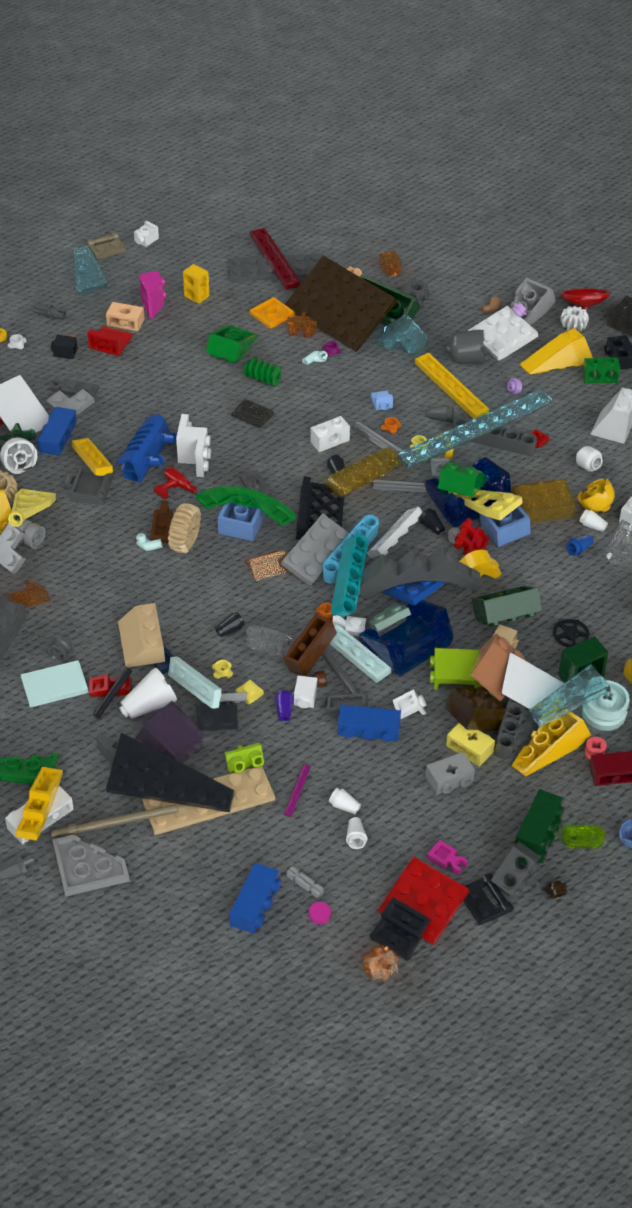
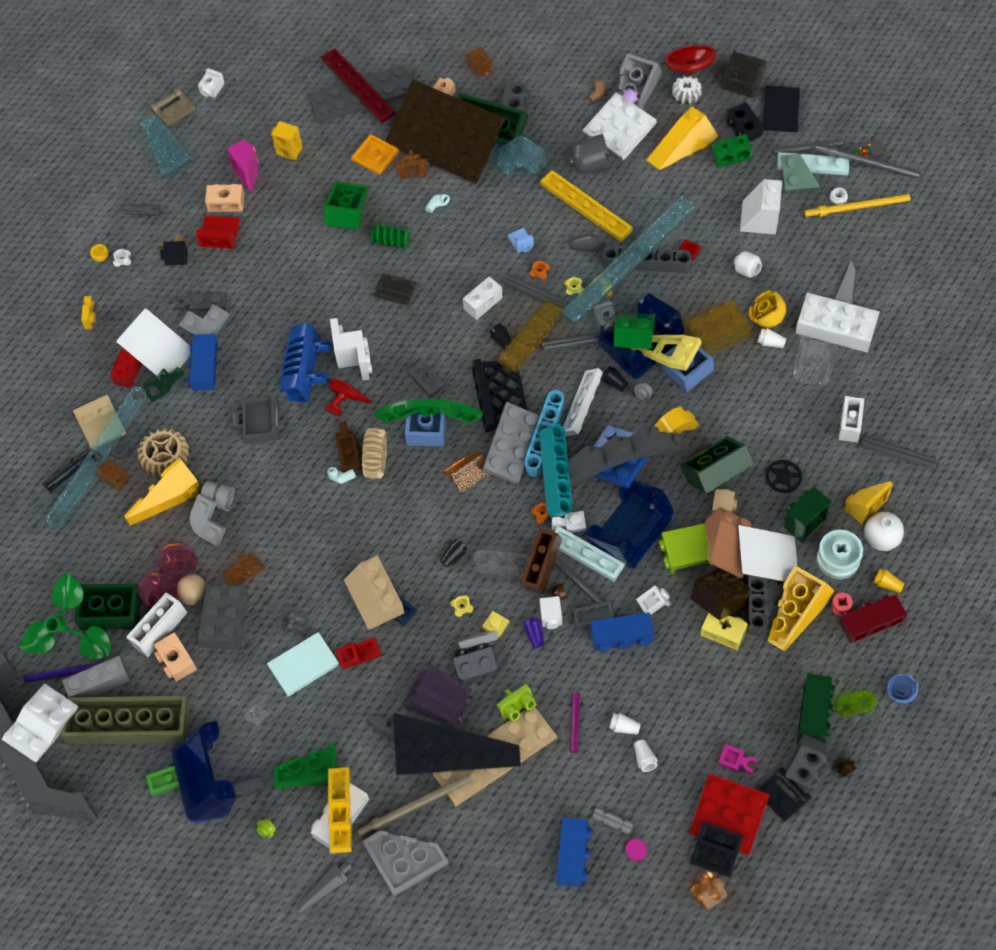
camera: 10 degrees left, 15 degrees up
(17, 452) = (174, 401): white cylinder -> none
(29, 503) = (208, 449): light yellow plate -> none
(92, 456) = (251, 387): yellow plate -> none
(112, 692) = (364, 661): black bar -> none
(148, 696) = (401, 658): white cone -> none
(194, 682) = (442, 632): light aqua plate -> none
(331, 348) = (450, 183): magenta plate -> none
(389, 616) = (606, 505): sand green wing -> none
(450, 773) = (718, 658): light grey brick -> none
(477, 538) = (665, 394): red plate -> none
(514, 386) = (649, 191): lavender plate -> none
(571, 695) = (809, 554): clear light blue wing -> none
(579, 544) = (765, 370): blue cone -> none

